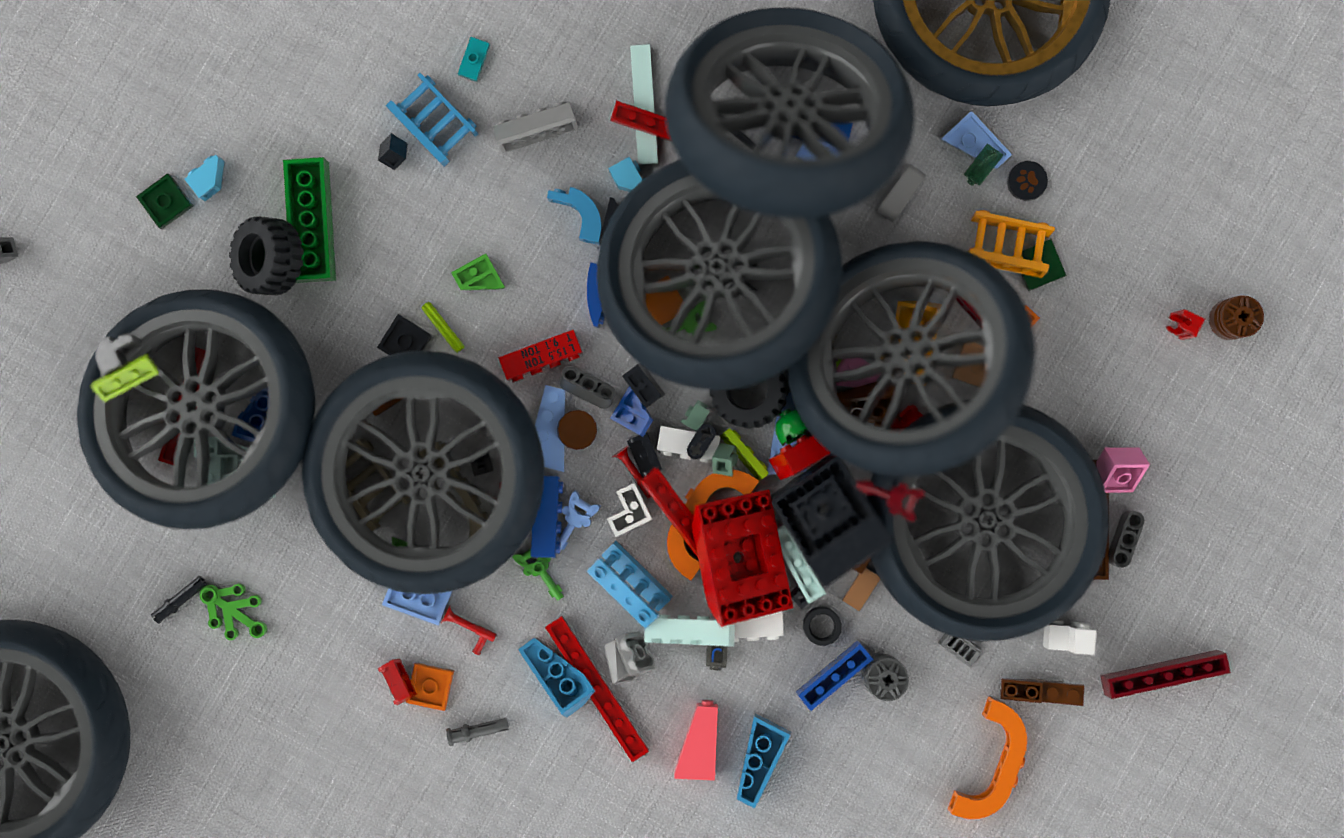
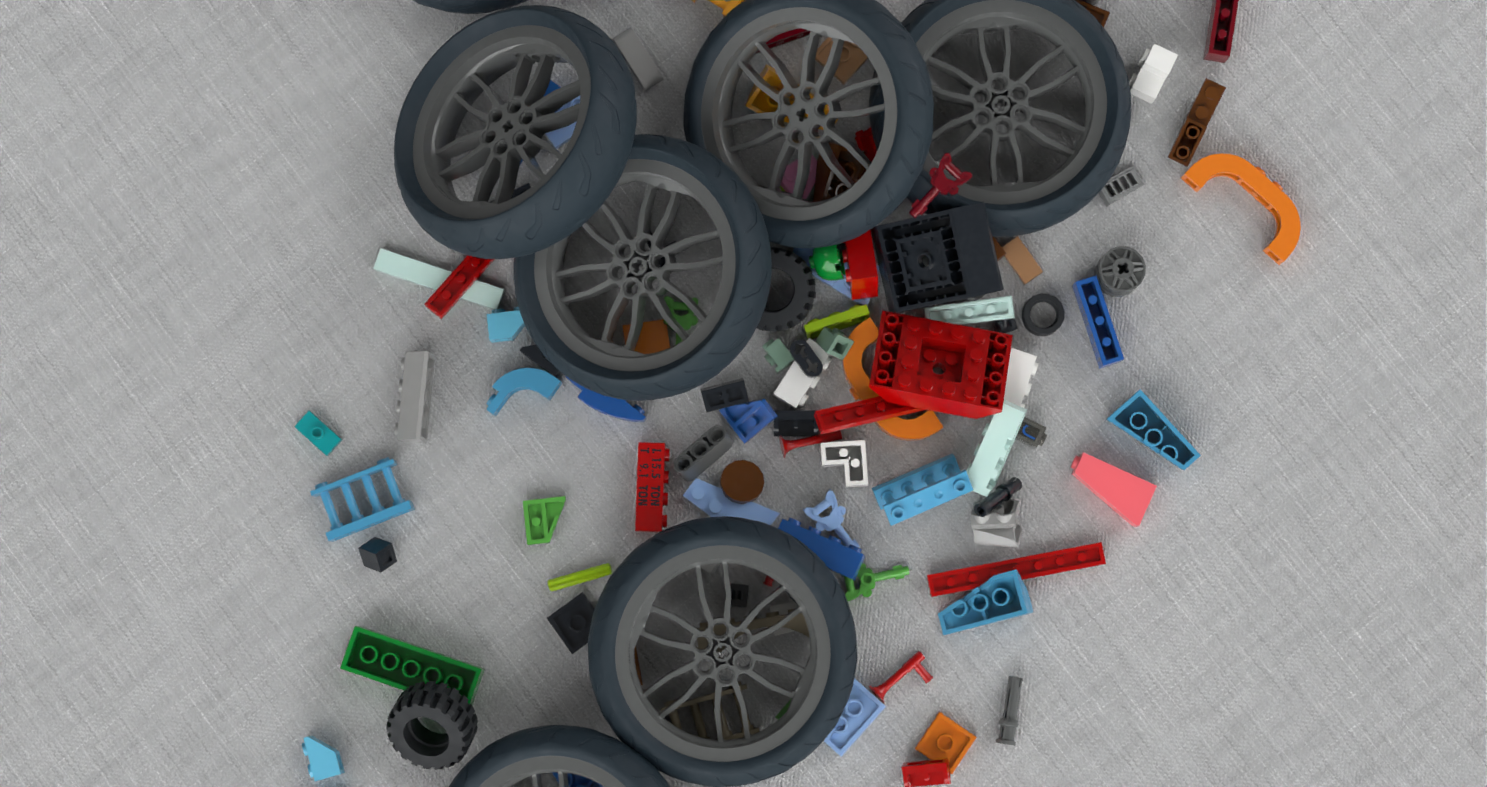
camera: 65 degrees left, 5 degrees down
(655, 653) = (1003, 493): none -> black pin

